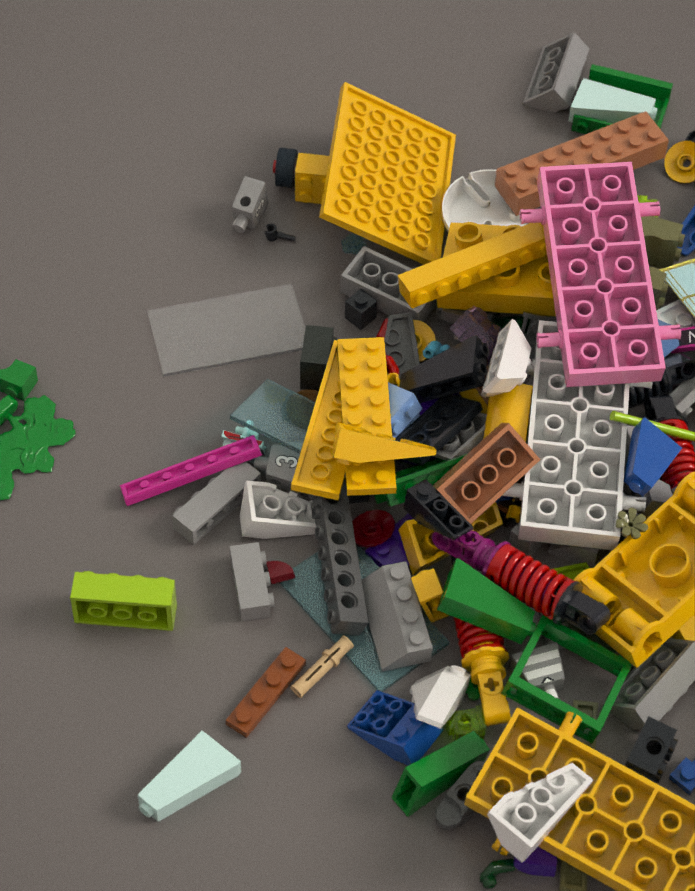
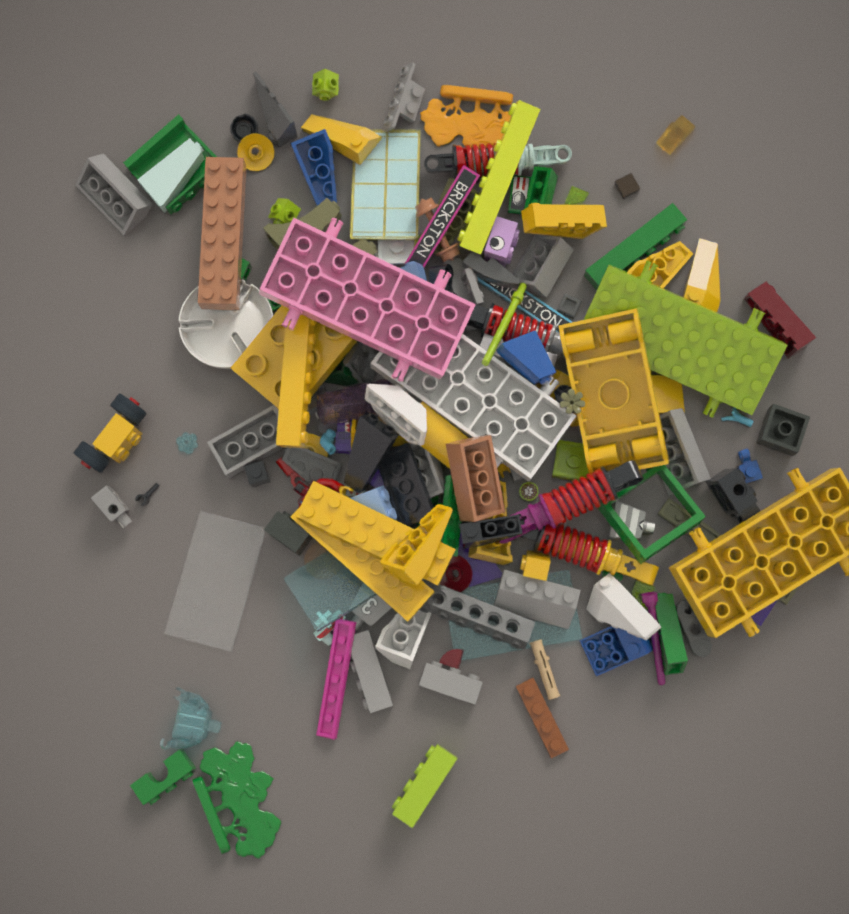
camera: 55 degrees left, 25 degrees up
(70, 369) = (191, 722): none -> clear light blue torso
(189, 776) = (582, 803): light aqua slope -> none
(387, 175) = (150, 386): yellow plate -> none
(465, 726) = (650, 600): none -> magenta piece
(485, 604) = (573, 540): green slope -> none
(496, 867) = (753, 644): dark green arm -> none
(532, 812) = (755, 598): white wedge -> none

